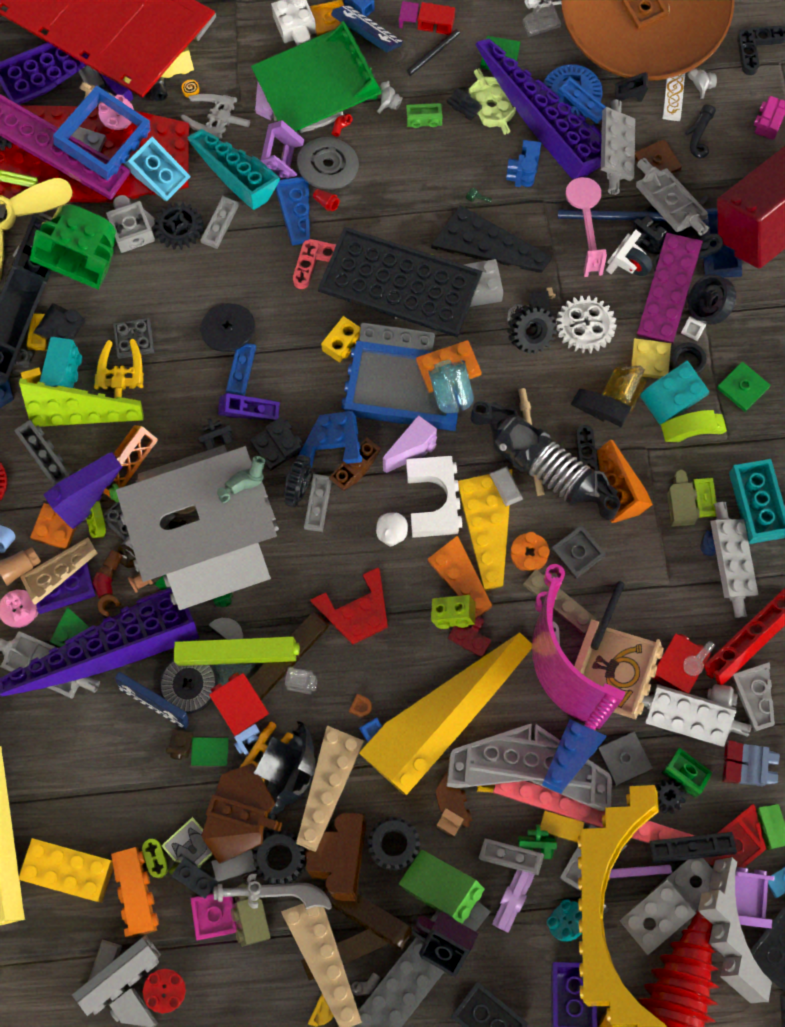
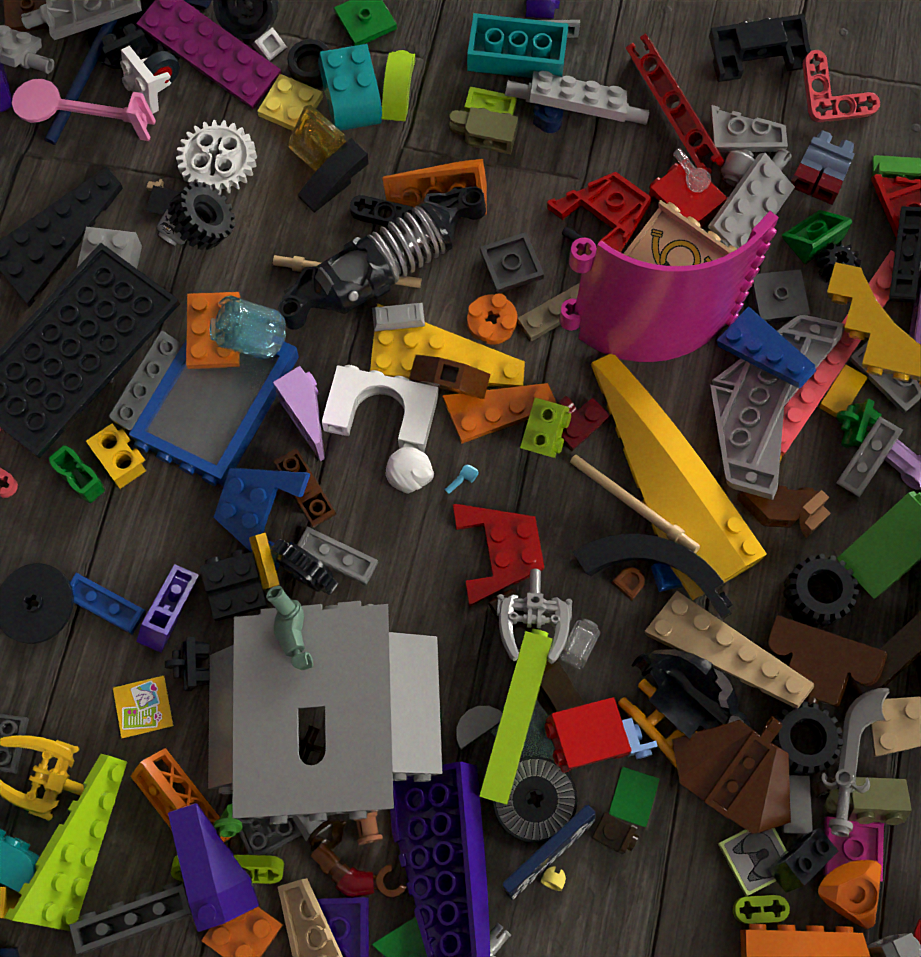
camera: 75 degrees left, 0 degrees up
(137, 713) = (553, 880): none -> light yellow hinge
(181, 417) = (142, 707): none -> sticker
(183, 920) = (853, 891): none -> orange hat
(291, 458) = (264, 561): none -> yellow tile
(316, 322) = (77, 474): none -> green brick
(316, 641) = (534, 606): none -> light grey bar
(383, 724) = (641, 547): none -> black arch
(401, 723) = (673, 533): none -> tan bar
(405, 569) = (468, 472): none -> medium azure hand
(469, 534) = (450, 375): none -> reddish brown slope
(655, 611) = (612, 201): none -> red wing

